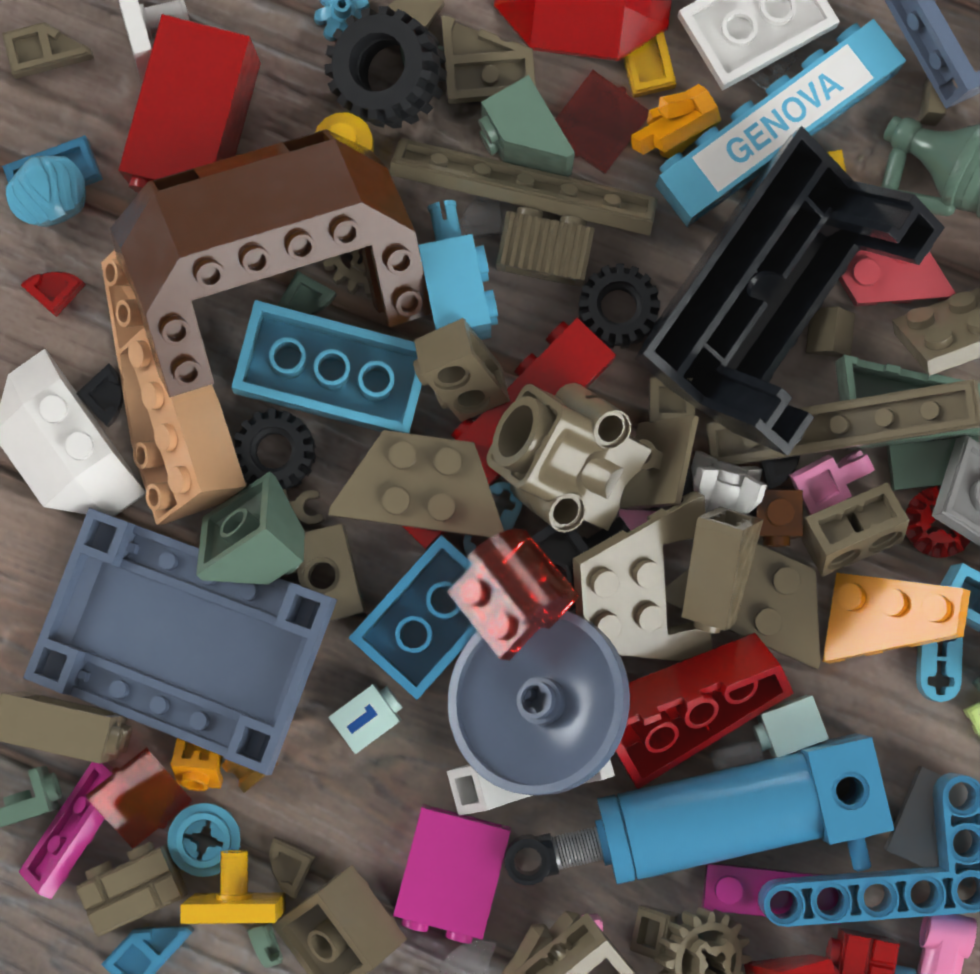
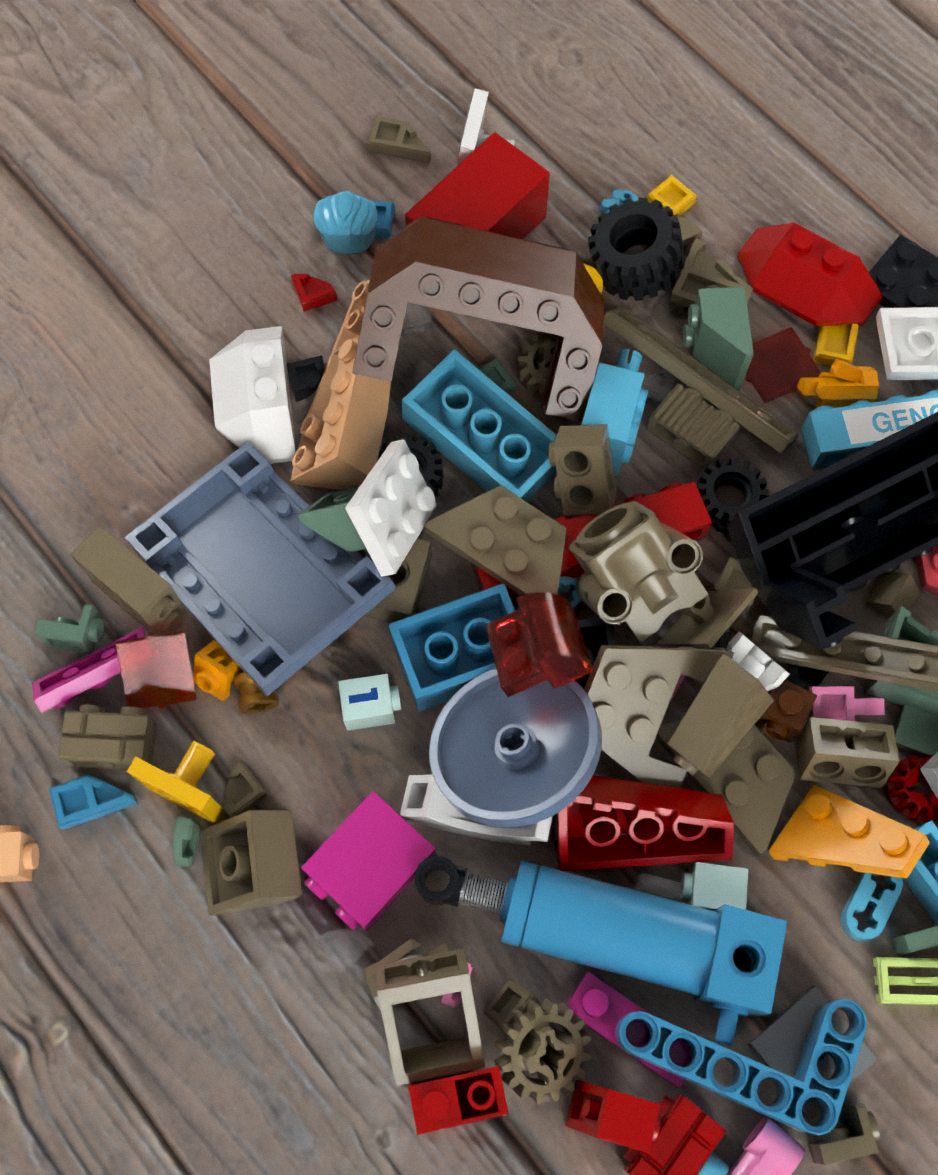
camera: 25 degrees right, 15 degrees down
(186, 851) = (188, 714): medium azure gear -> none
(289, 520) = (391, 507): none -> white plate

